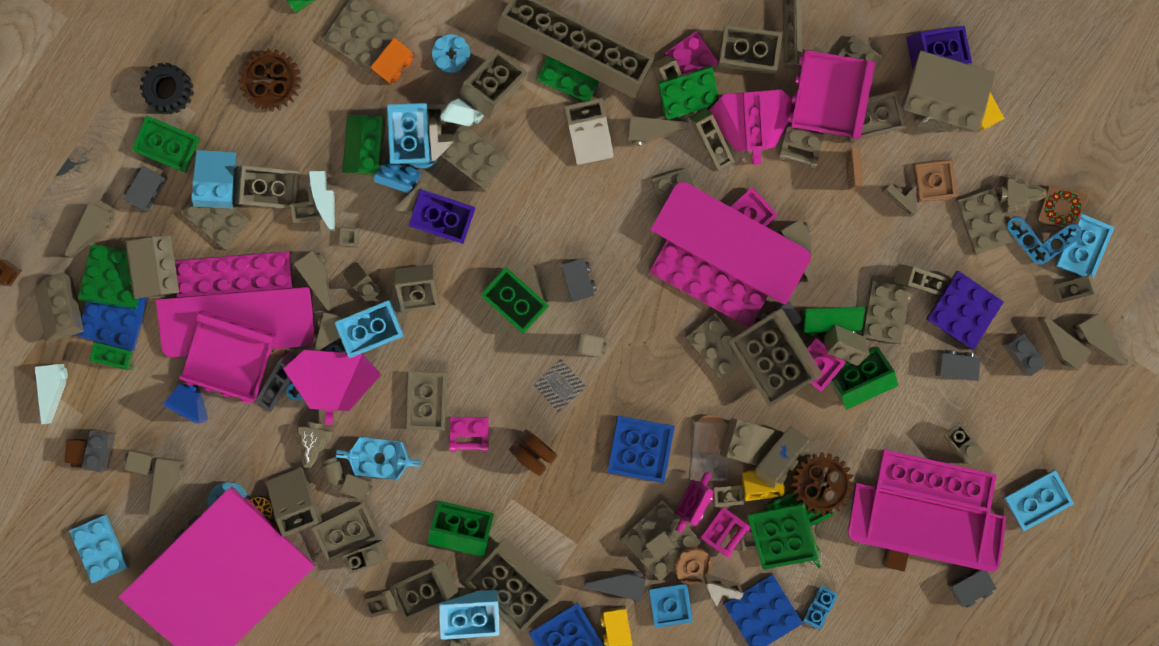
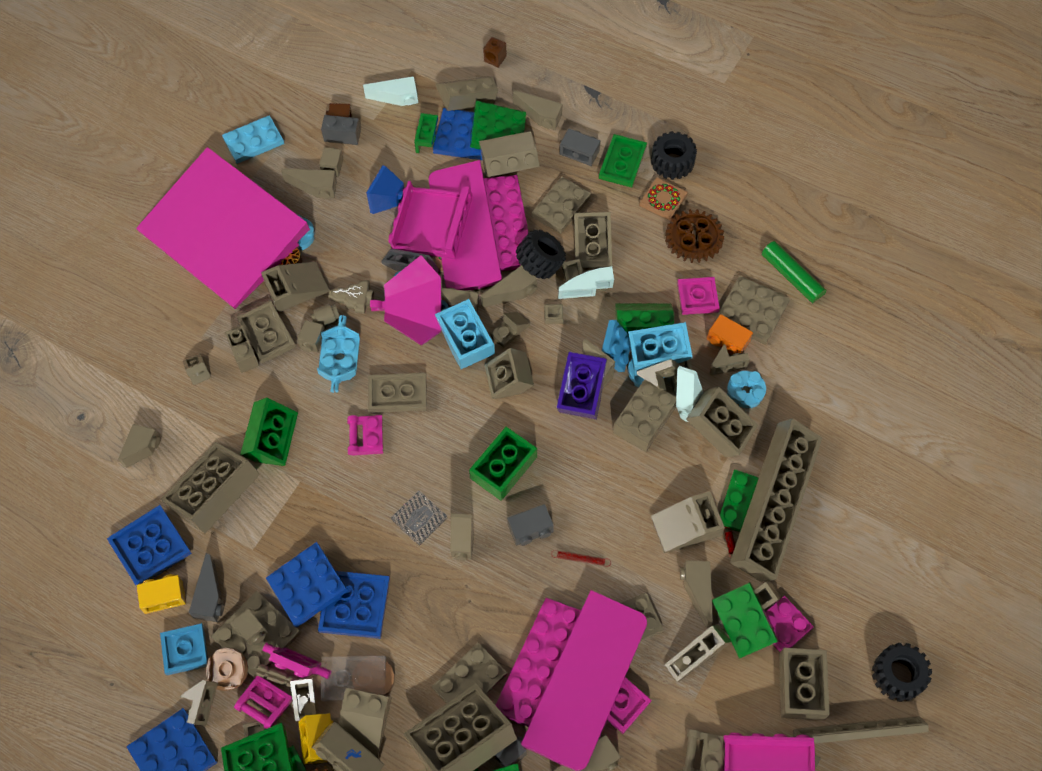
camera: 90 degrees right, 25 degrees down
(214, 179) = (594, 194): medium azure slope -> none
(218, 106) = (663, 199): none -> tile
(284, 243) = (540, 254): none -> black tyre
(342, 86) = (698, 295): none -> dark pink plate
(421, 72) = (724, 363): none -> dark tan slope
(424, 591) = (207, 406): dark tan slope -> none
(470, 616) = (179, 444): medium azure slope -> none
(531, 454) = (347, 491): reddish brown wheel -> none
(608, 94) = (730, 541): none -> red piece
(614, 235) = (597, 560): none -> red piece
(619, 492) = (306, 584): none -> blue plate
(698, 533) = (274, 675): none -> dark tan axle
(753, 119) = (726, 695): dark pink panel -> none

